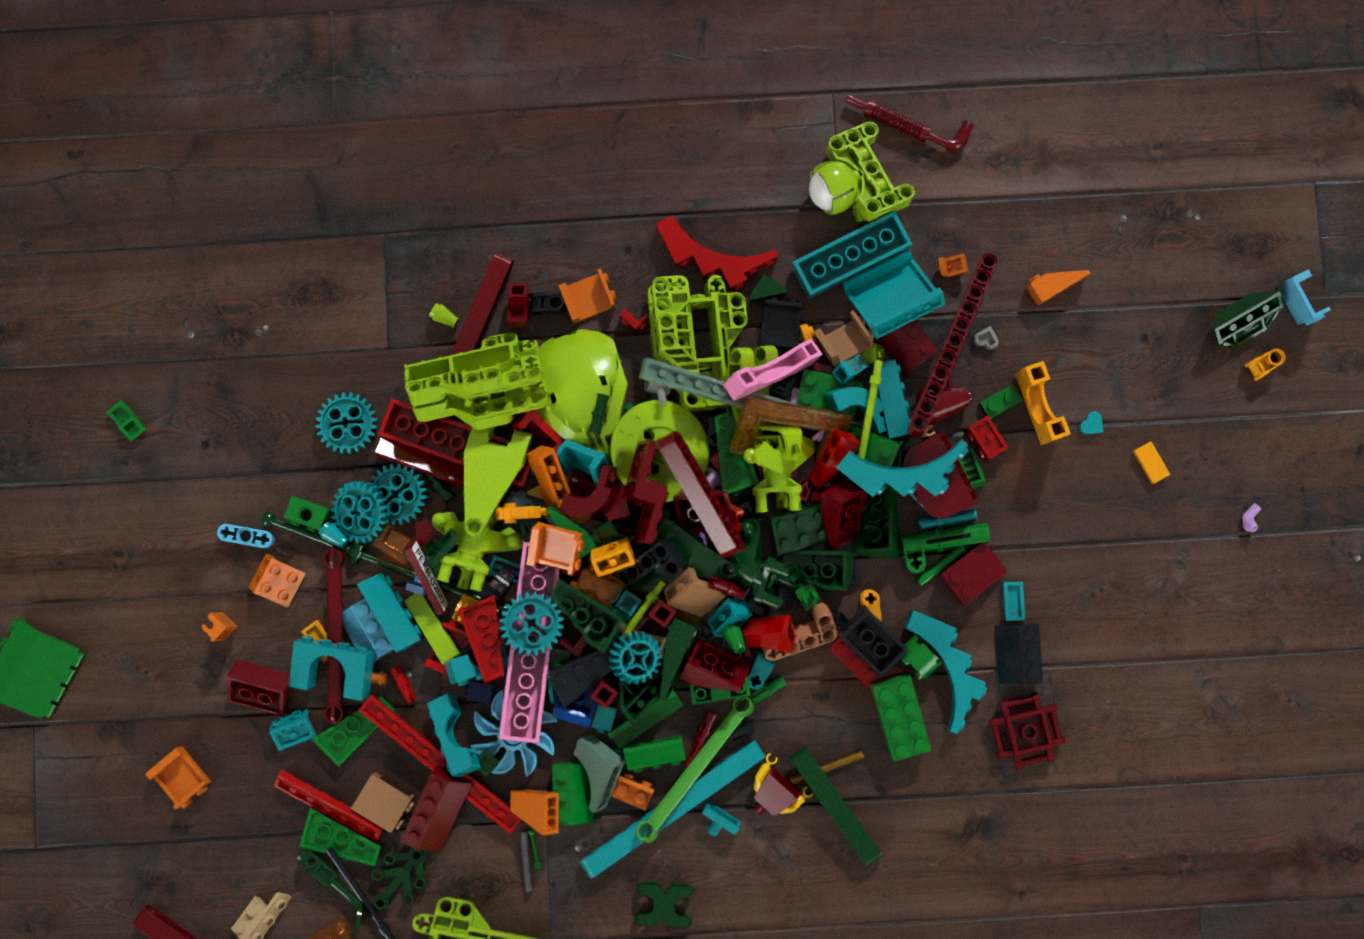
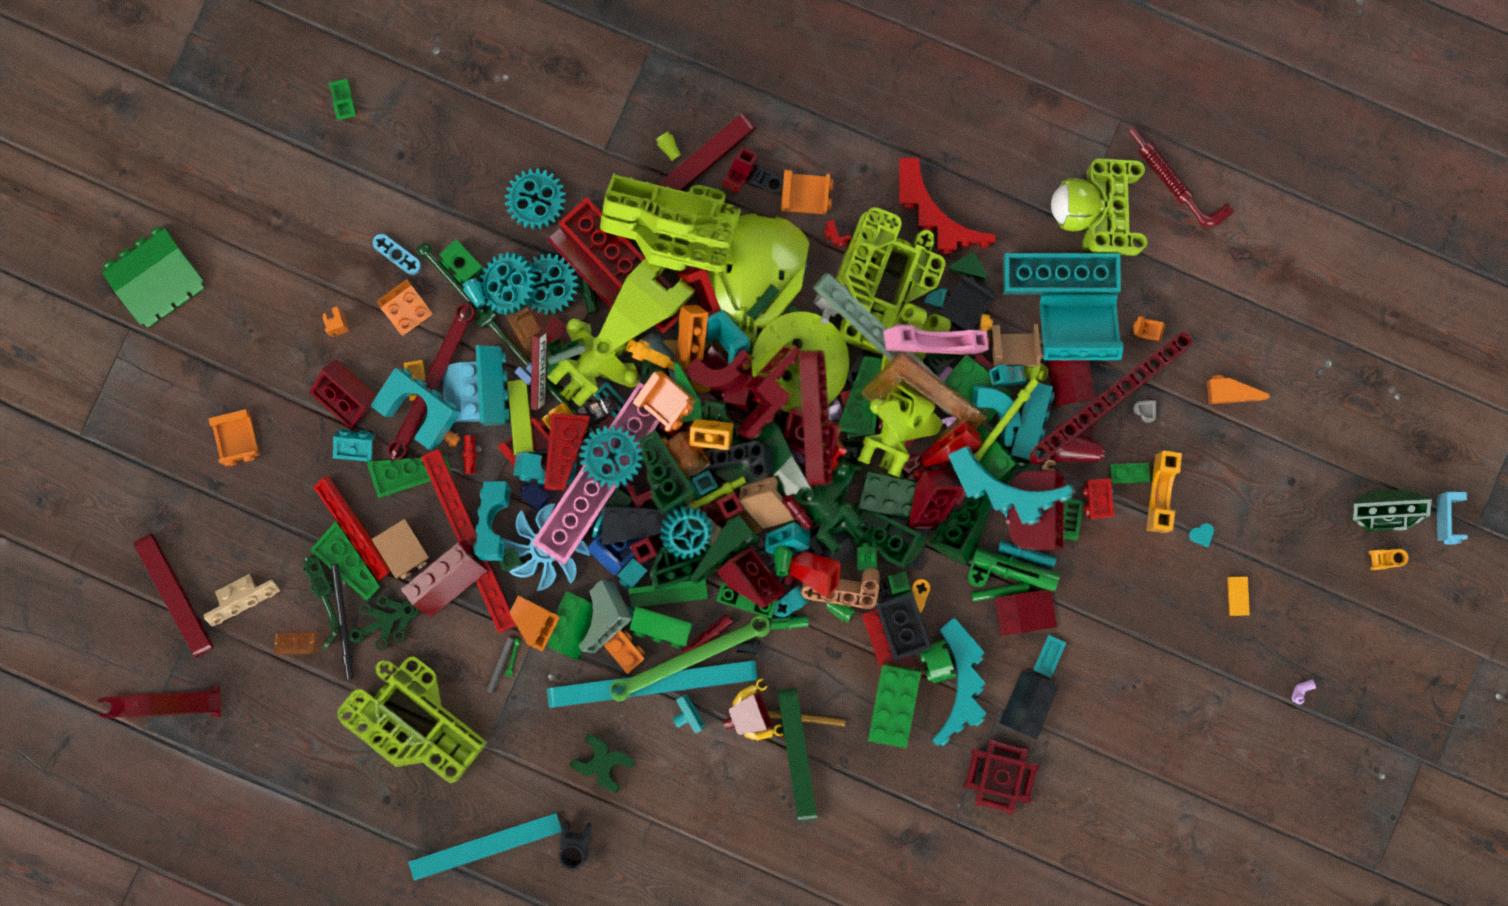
camera: 30 degrees right, 0 degrees up
(751, 332) = (936, 298): none -> teal tile
(810, 656) = (843, 612): none -> green cone
(847, 604) = (898, 582): none -> green panel

